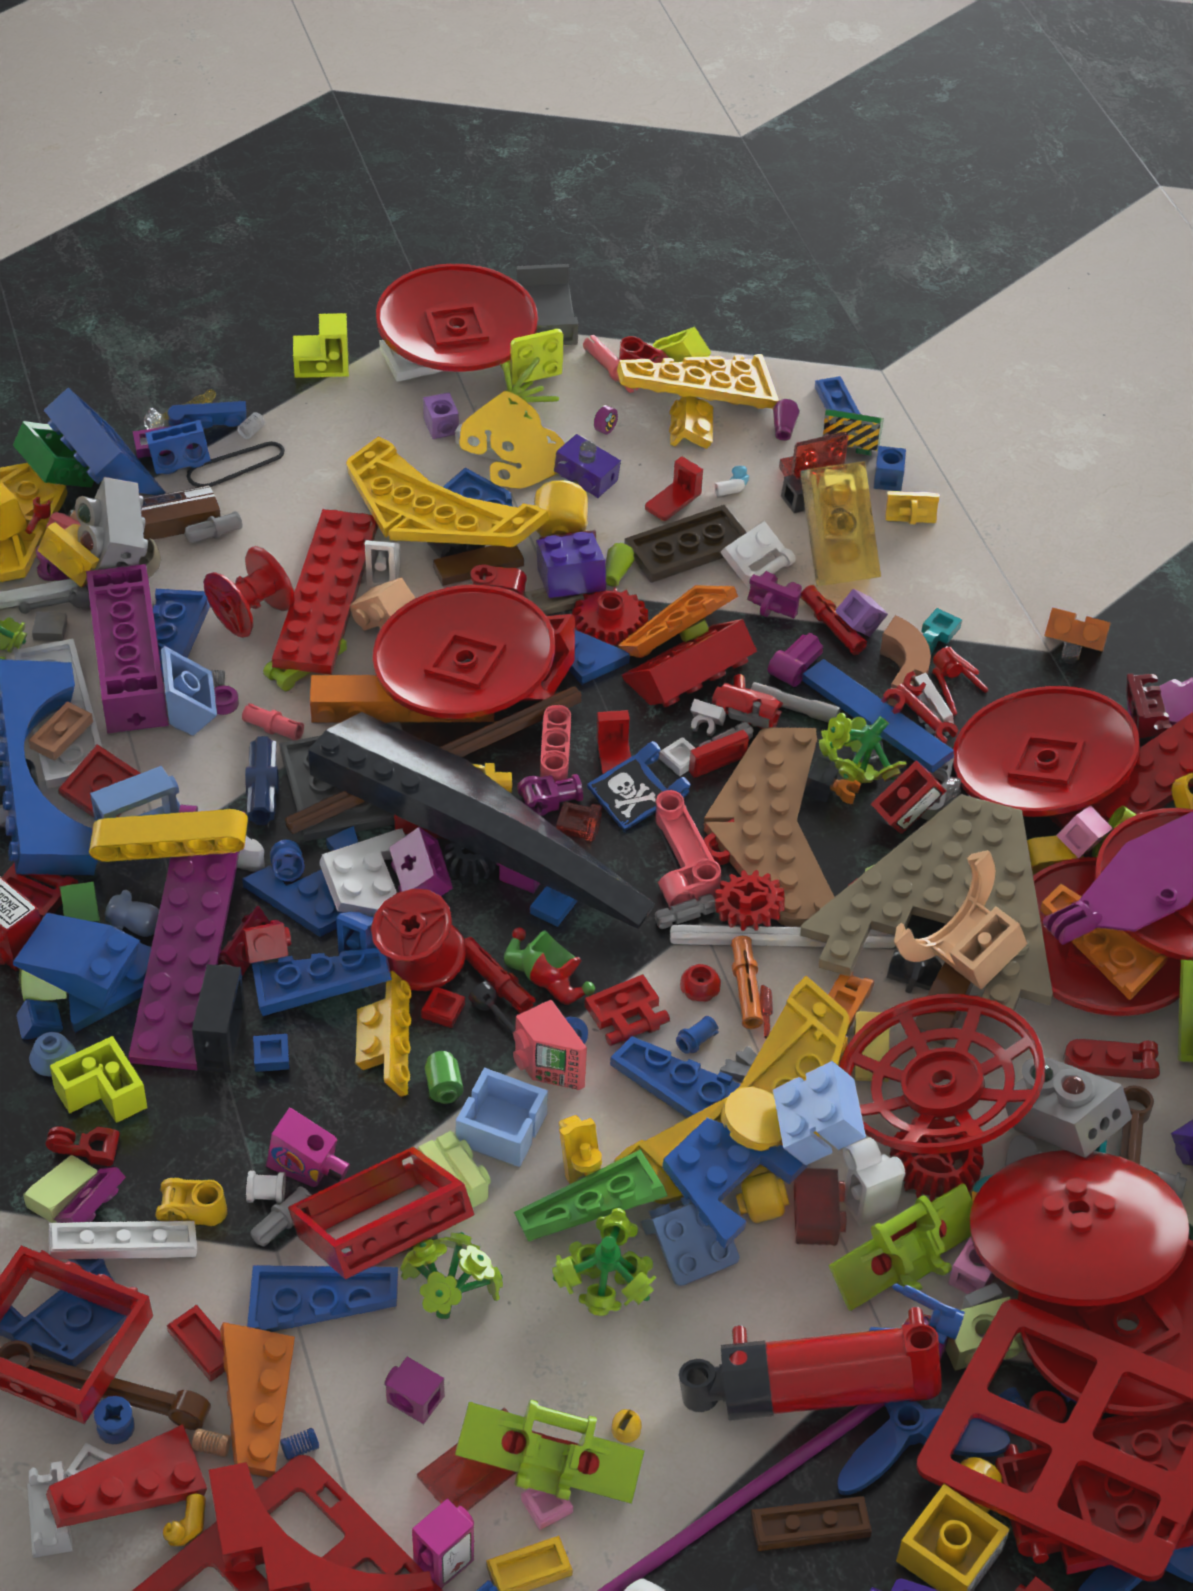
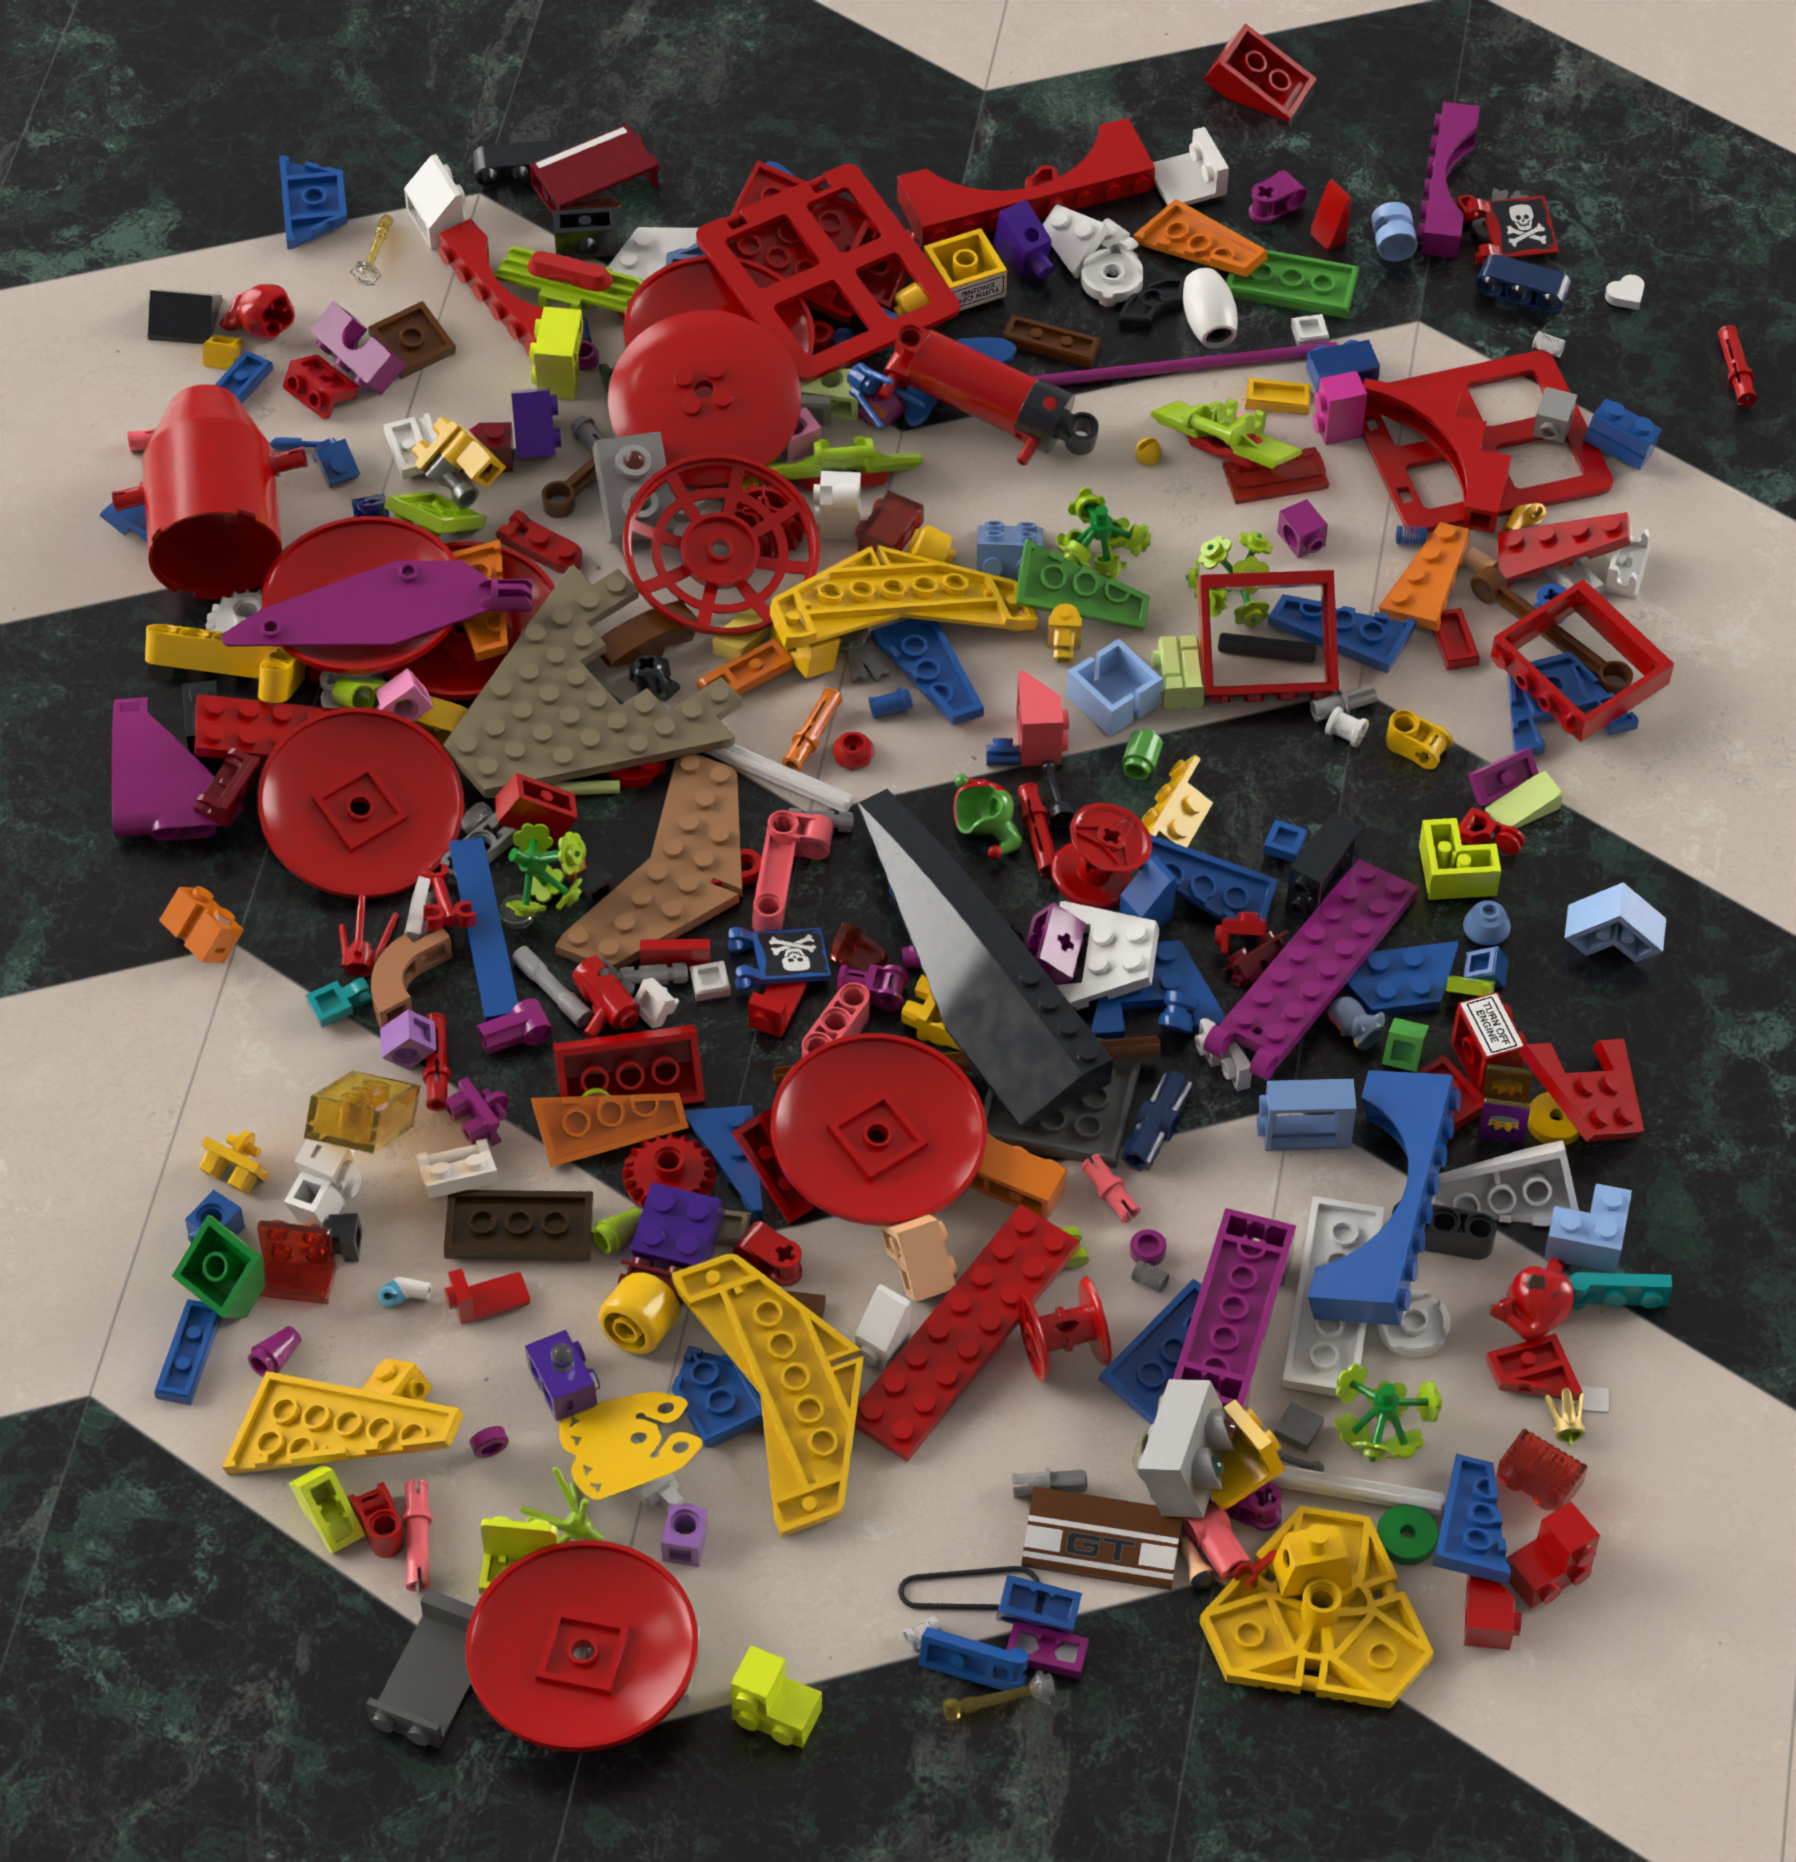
camera: 150 degrees left, 5 degrees up
(42, 455) = (1205, 1684): green window -> none
(60, 731) = (1343, 1238): nougat plate -> none
(79, 957) = (1431, 962): blue slope -> none
(95, 772) = (1326, 1177): red tile -> none
(97, 443) = (1136, 1620): blue slope -> none
(122, 1240) = (1495, 727): white tile -> none
(168, 835) = (1297, 1026): yellow beam -> none
(188, 692) = (1190, 1233): medium blue slope -> none
(304, 1151) = (1303, 731): dark pink torso -> none
(625, 1001) = (938, 750): red plate -> none
(713, 1165) = (963, 560): blue wing -> none
(749, 900) = (760, 784): red gear -> none
(752, 1118) = (909, 565): yellow tile -> none
(766, 1005) = (808, 706): clear red piece -> none
(822, 1104) = (863, 514): light blue piece -> none
(975, 939) = (604, 624): light nougat piece -> none

